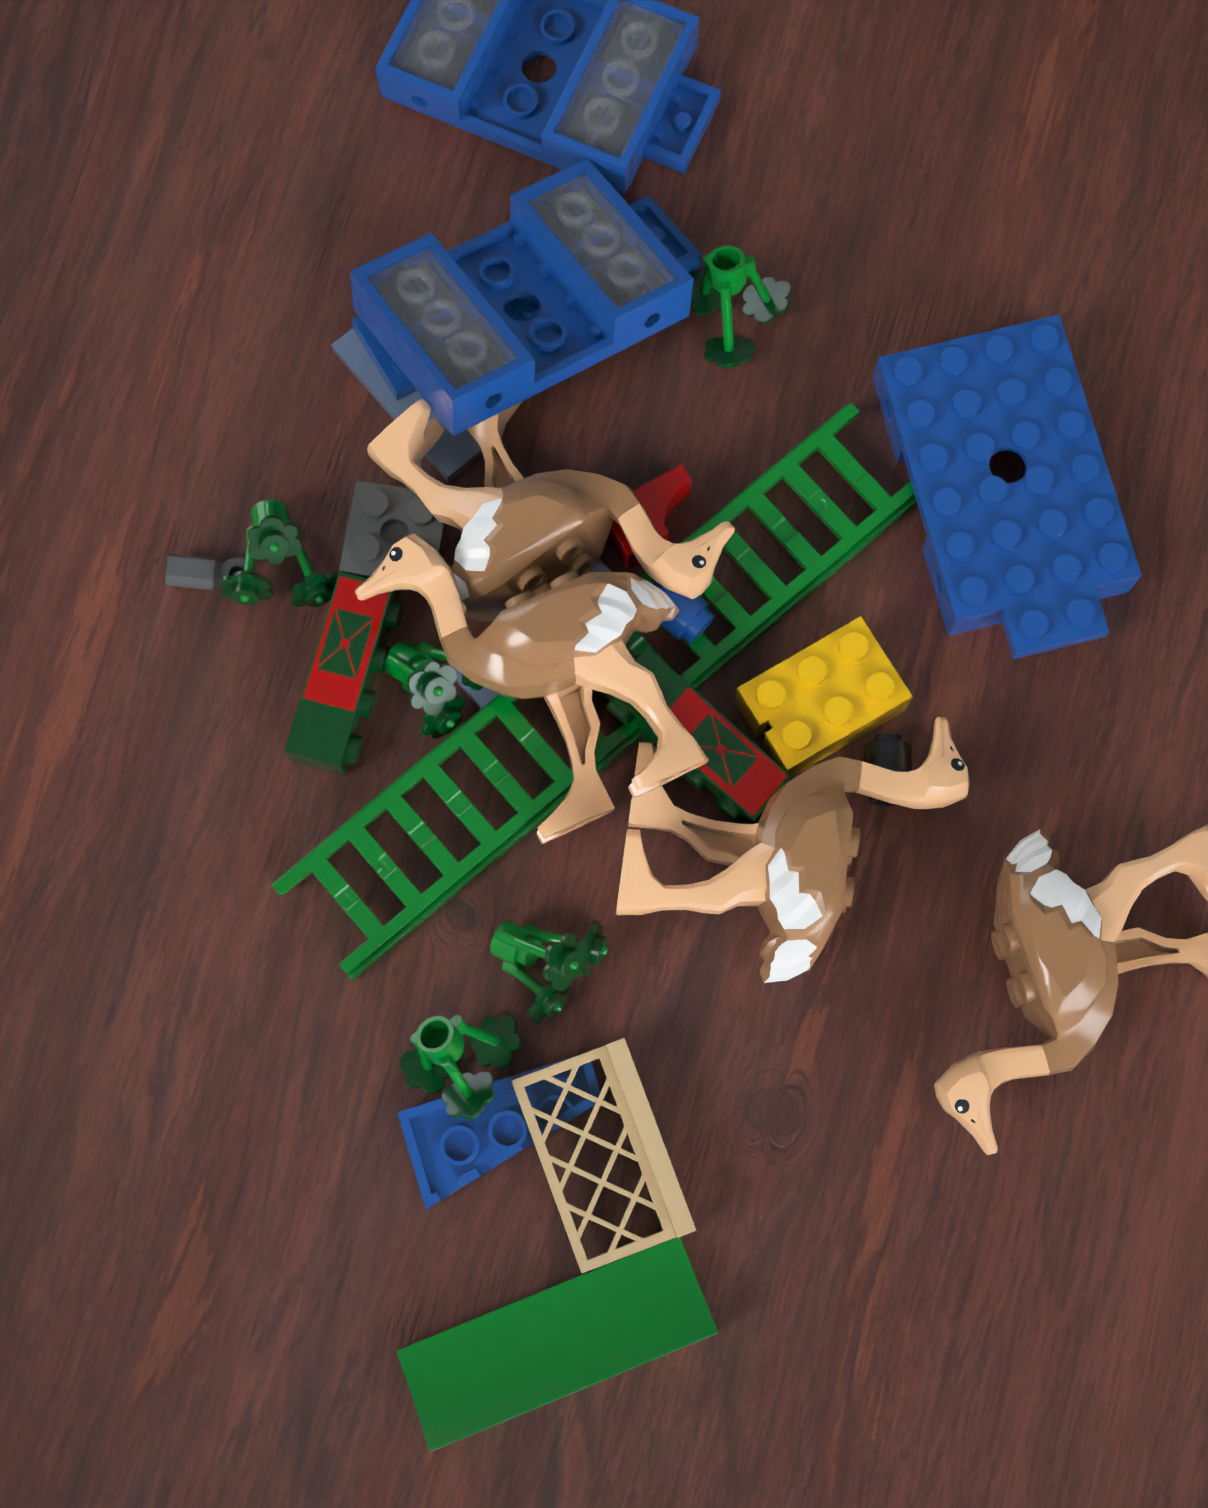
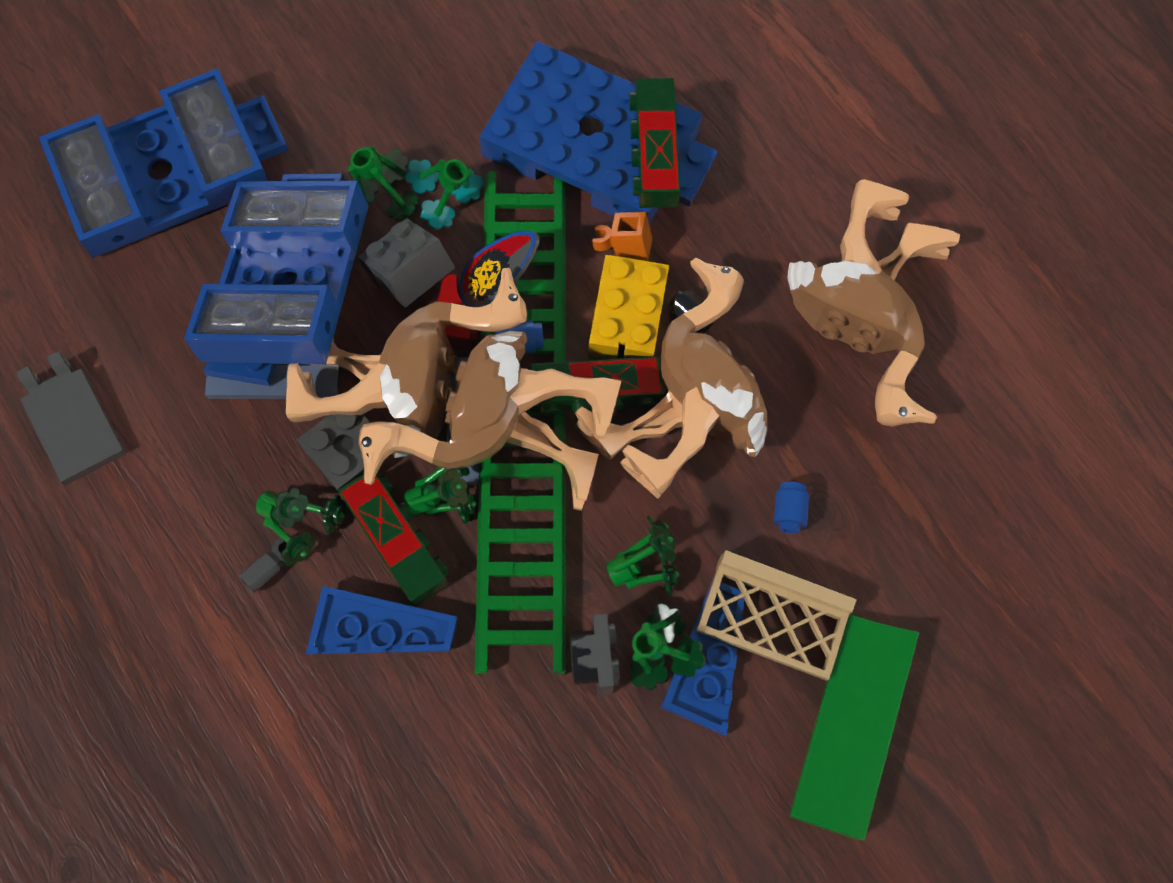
camera: 55 degrees left, 5 degrees down
(189, 239) = (69, 420): none -> dark grey tile
(230, 729) = (373, 625): none -> blue wing
(386, 992) = (592, 656): none -> dark grey piece
(656, 413) = (406, 262): none -> dark grey brick
(748, 1072) = (791, 507): none -> blue brick
(753, 508) = (483, 271): none -> shield
(797, 372) = (453, 177): none -> teal plant
(911, 622) = (629, 236): none -> orange brick
(1043, 554) = (656, 143): none -> dark green brick

